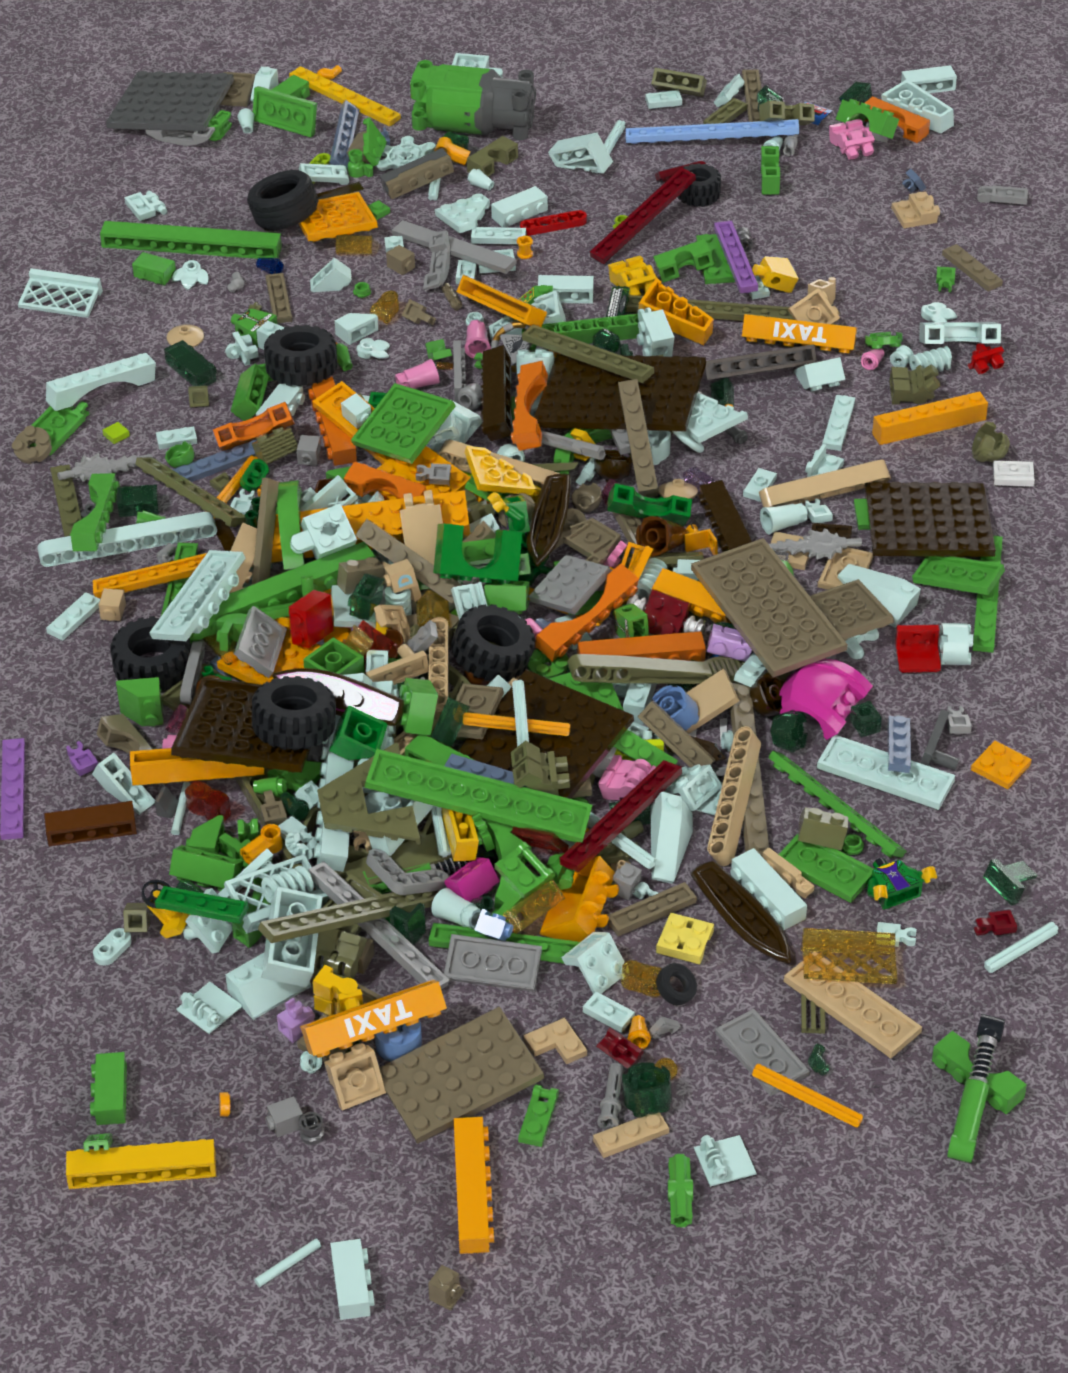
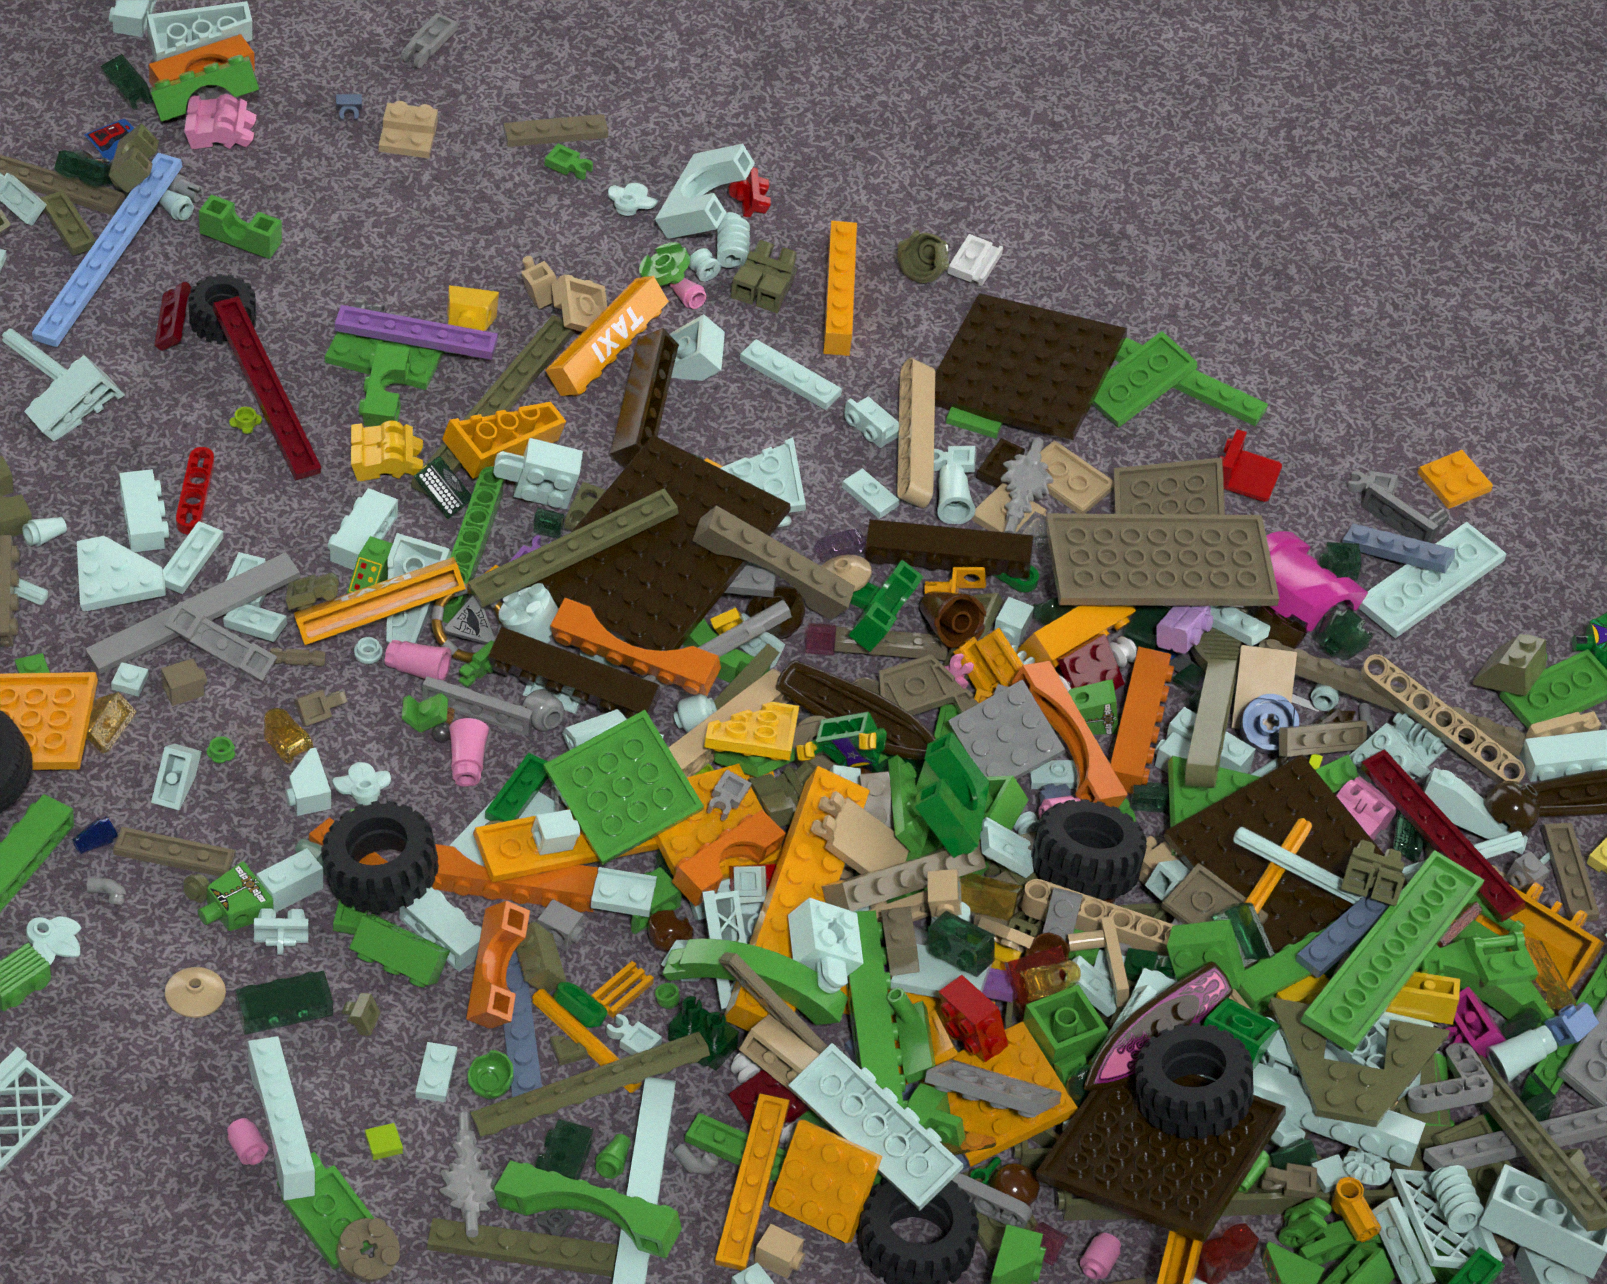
camera: 75 degrees left, 5 degrees up
(164, 594) = (825, 1181): none -> light orange plate
(225, 535) = (696, 1080): dark brown sticker -> none
(338, 459) = (623, 892): none -> light aqua plate
(498, 281) = (305, 591): none -> olive plate
(524, 244) = (240, 535): light orange bush -> none
(587, 497) = (823, 657): dark tan hair -> none
(607, 340) = (509, 530): clear green head -> none
(681, 856) = (1514, 804): none -> dark brown cylinder
(829, 799) = (1477, 641): bright green plate -> none
(893, 592) = (1144, 446): light aqua wedge -> none
(955, 643) = (1267, 429): light aqua brick -> none

